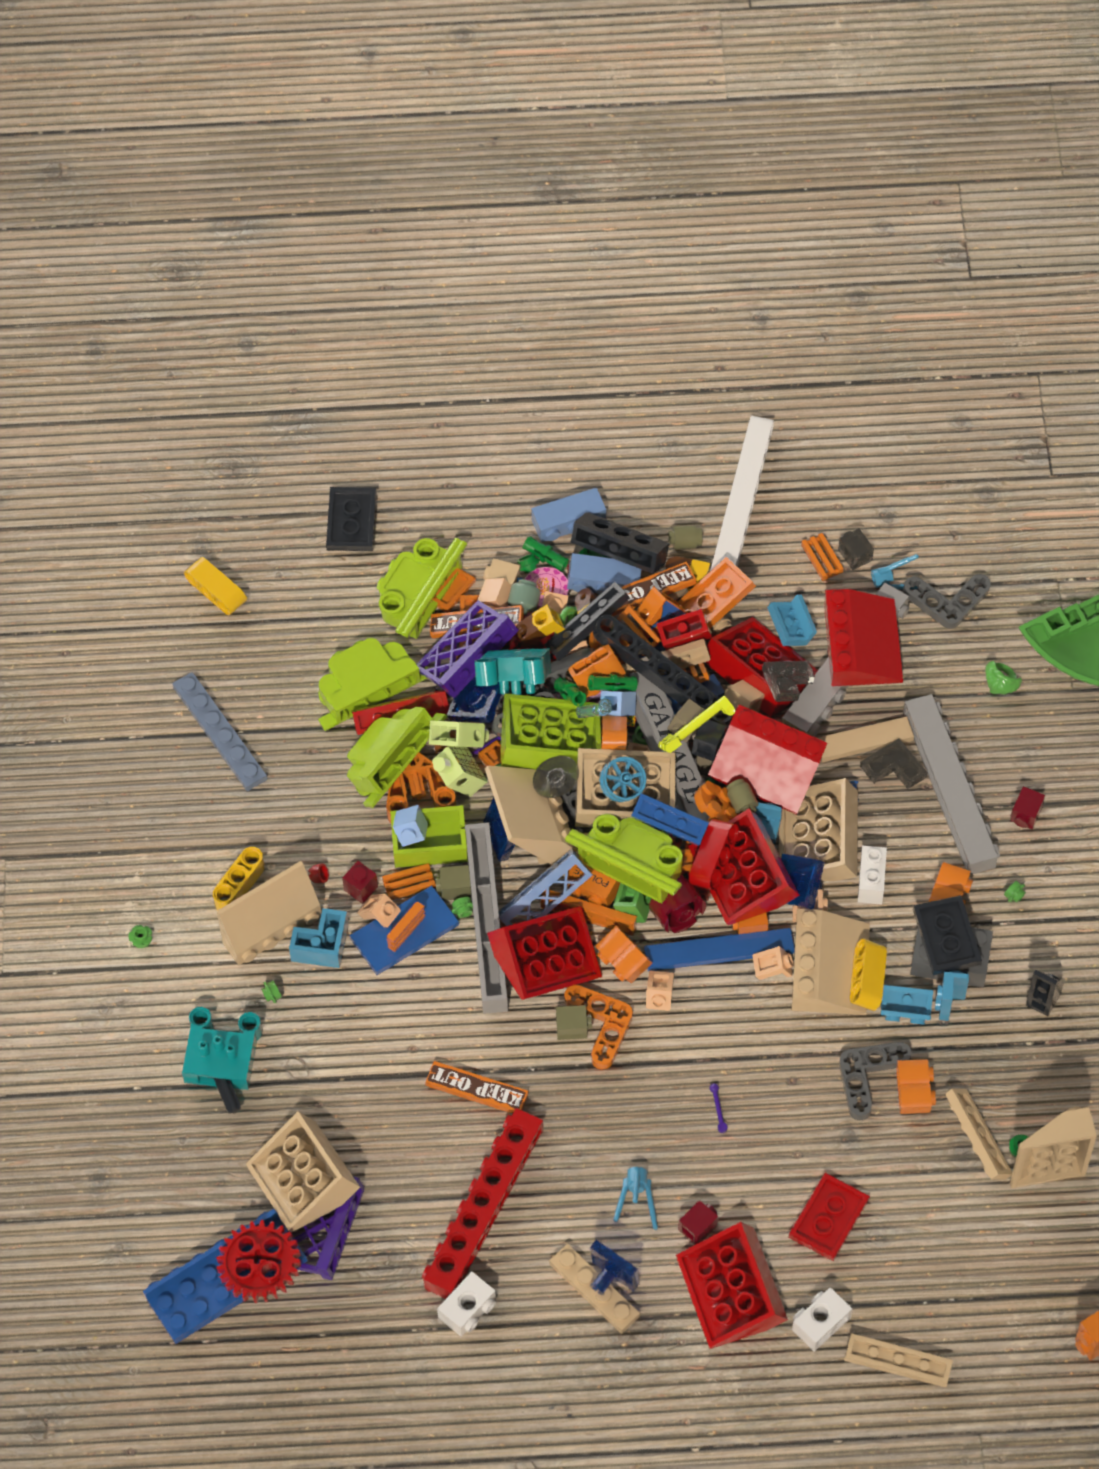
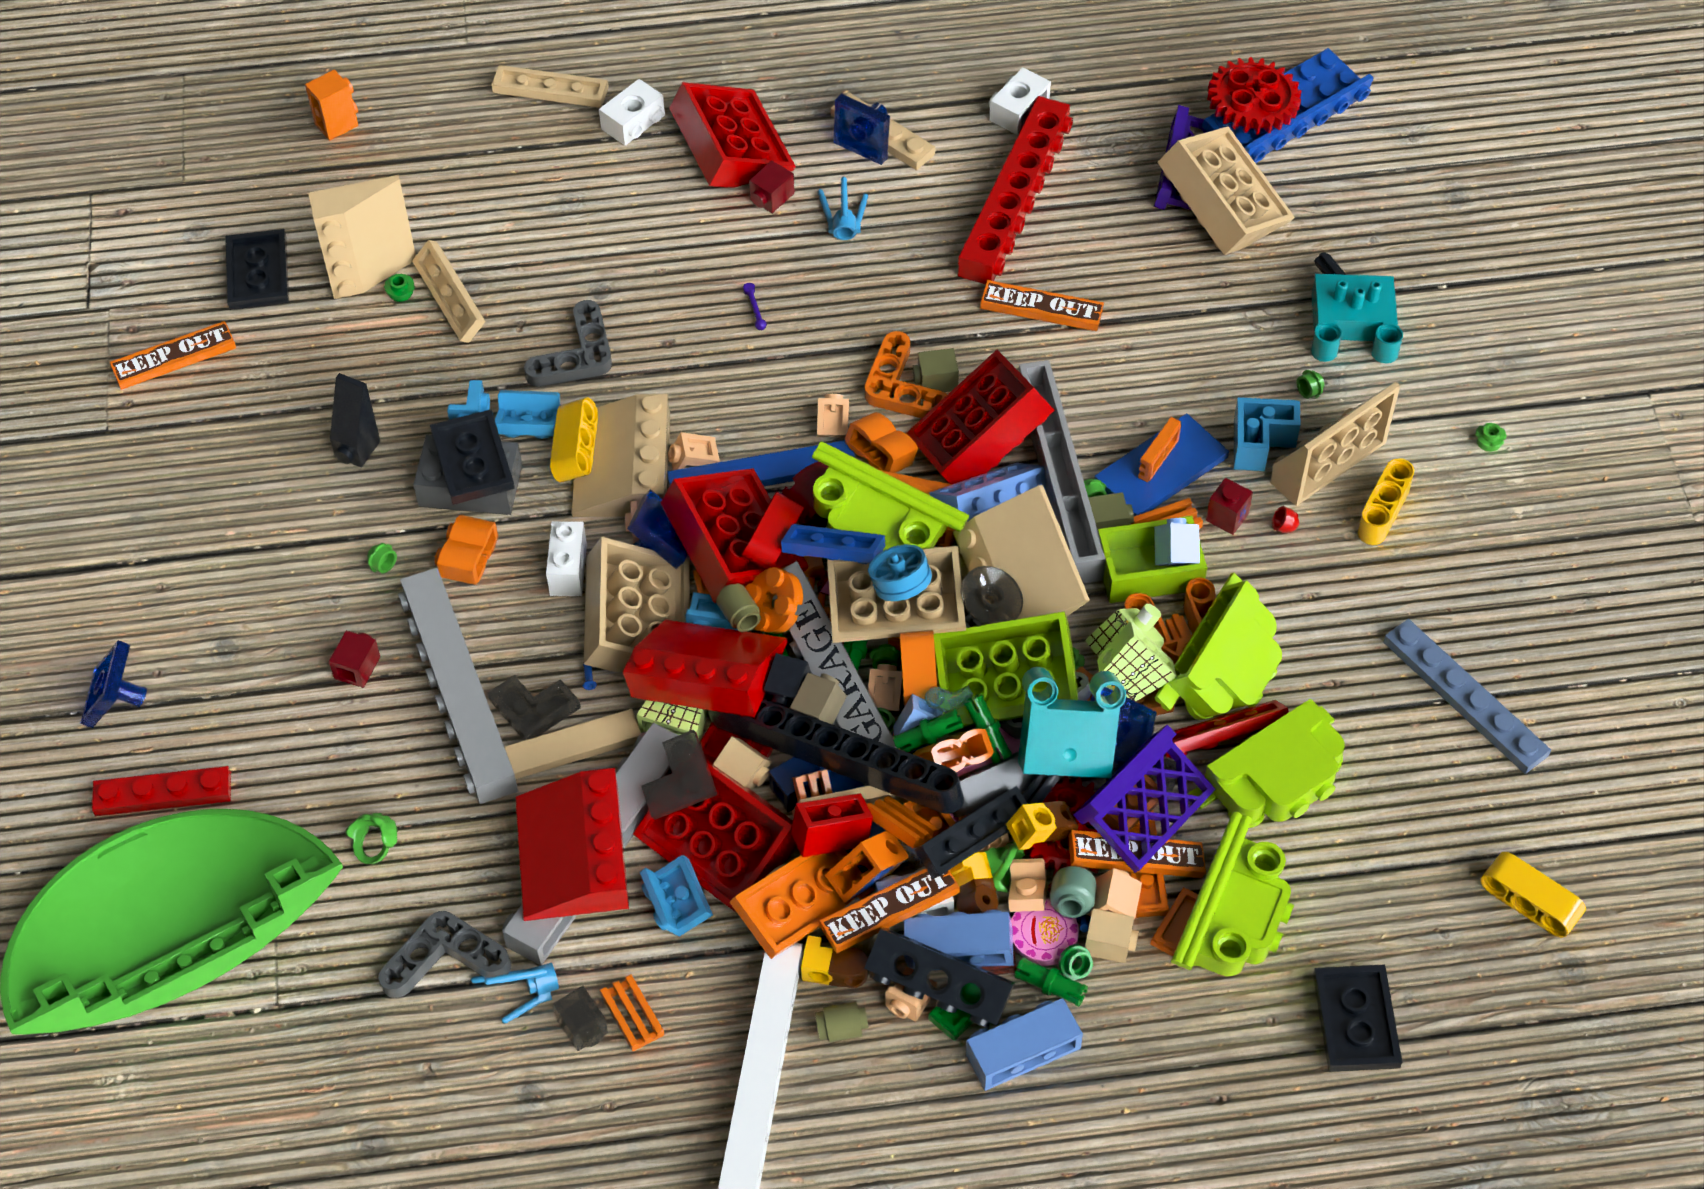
camera: 175 degrees right, 5 degrees down
(379, 908) = (1200, 475): light nougat bracket -> none
(672, 742) = (833, 655): neon yellow hinge -> none
(829, 1216) = (624, 211): red tile -> none
(914, 1086) = (521, 332): orange brick -> none

